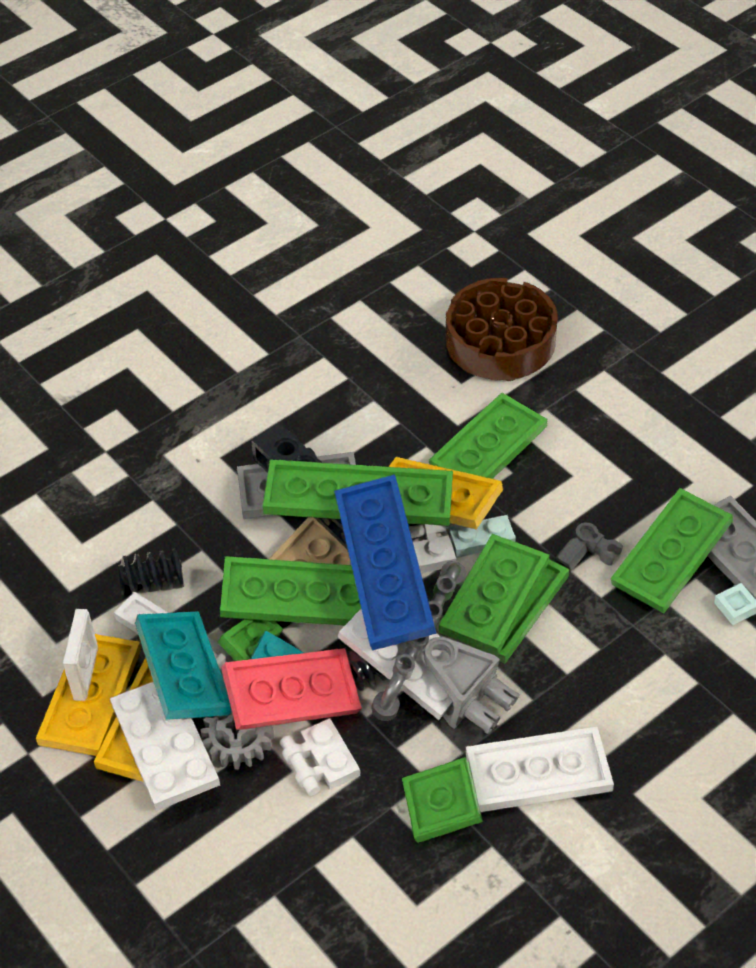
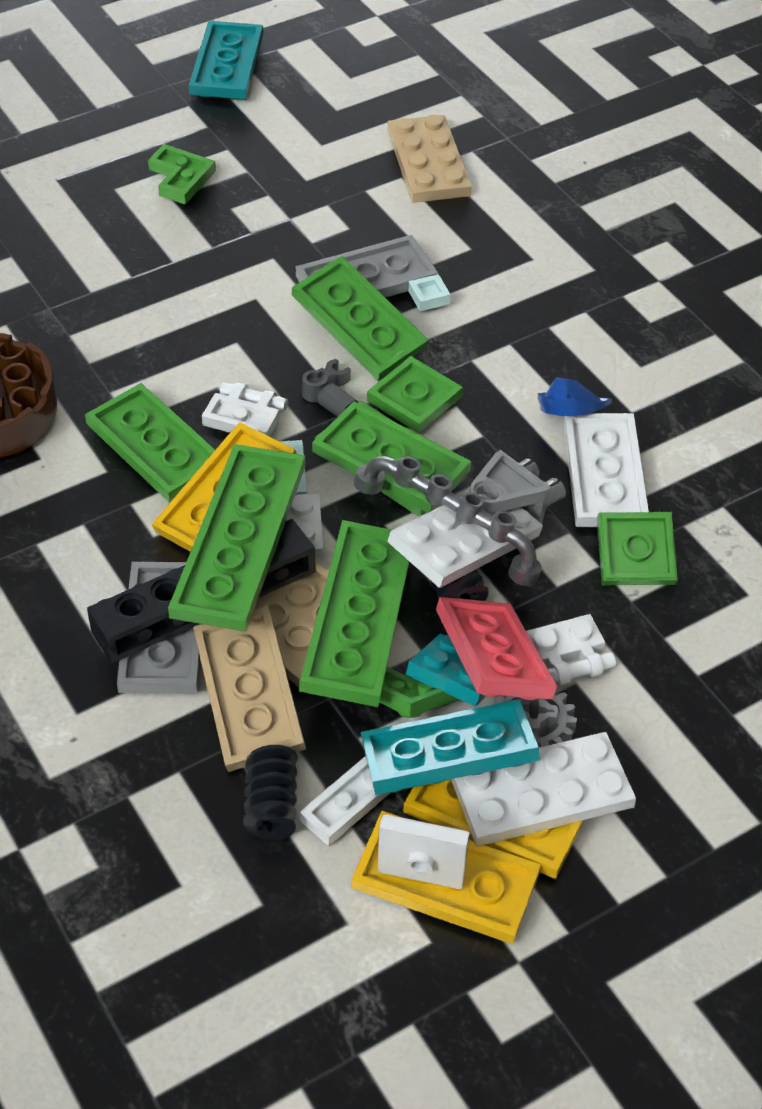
camera: 85 degrees left, 0 degrees up
(244, 535) = (248, 688): none -> tan plate
(384, 563) = (371, 506): blue plate -> none
(531, 491) = (244, 405): none -> white plate
(595, 610) = (414, 394): none -> bright green plate
(612, 729) = (570, 398): none -> blue piece

